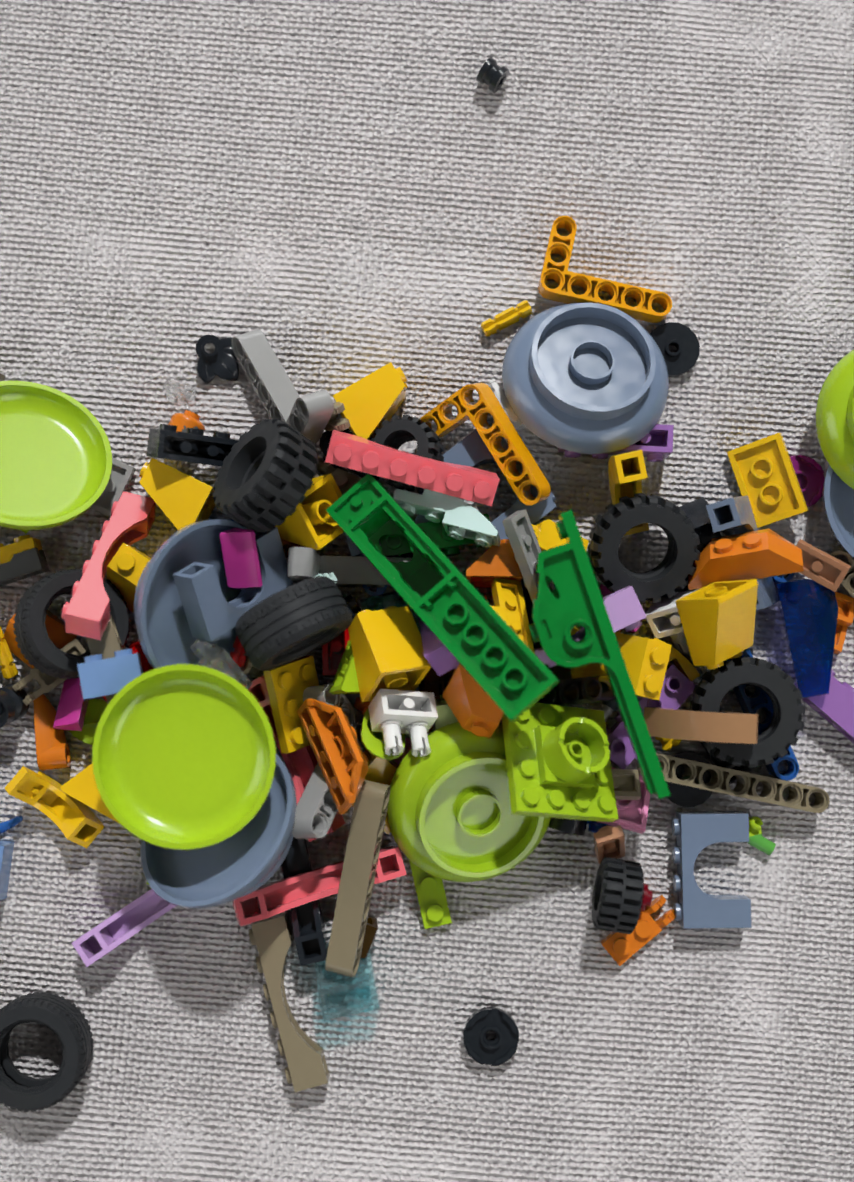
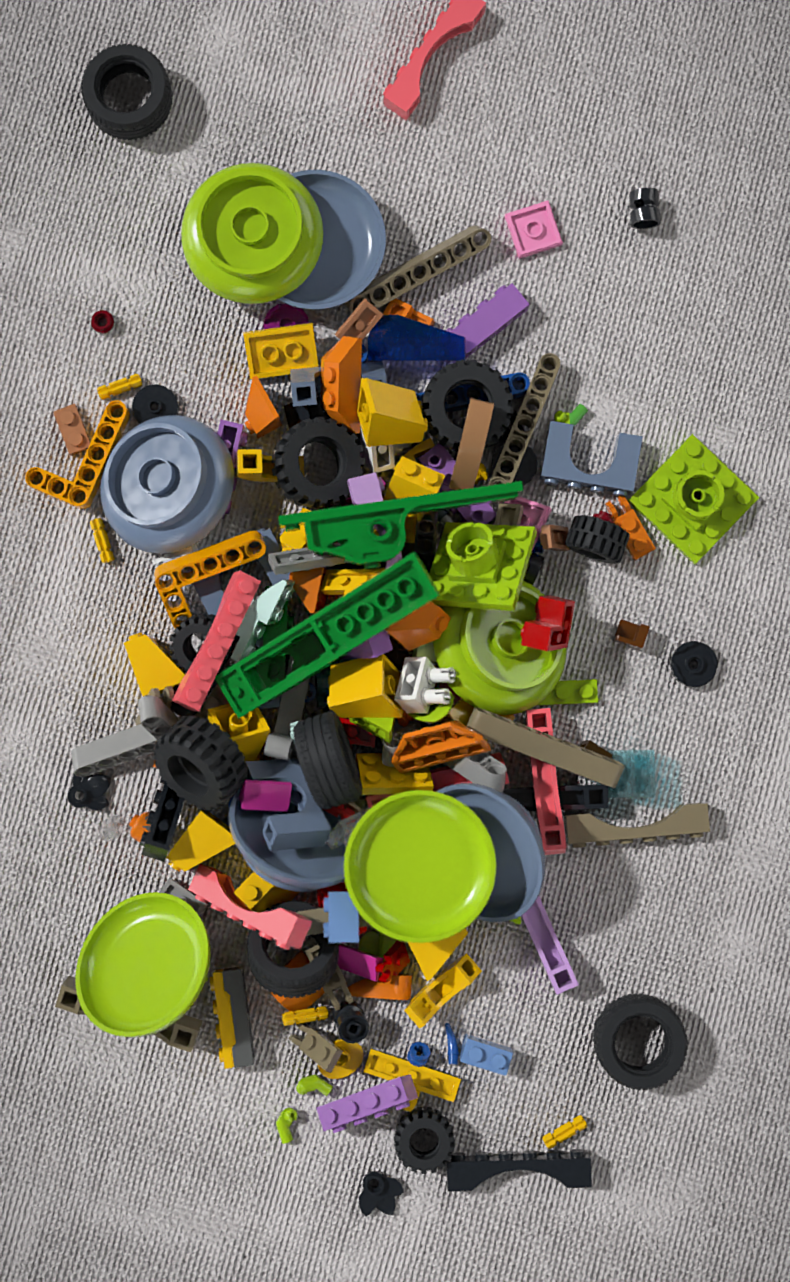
camera: 80 degrees left, 0 degrees up
(75, 743) = (395, 961): none -> red plate
(503, 860) = (551, 626): none -> red brick
(512, 955) = (631, 634): none -> reddish brown panel
(628, 260) = (72, 429): none -> nougat plate
(669, 980) = (670, 502): none -> lime piece
(688, 304) = (119, 386): none -> yellow axle
(692, 469) = (260, 411): none -> orange slope
(765, 265) = (99, 315): none -> dark red plate

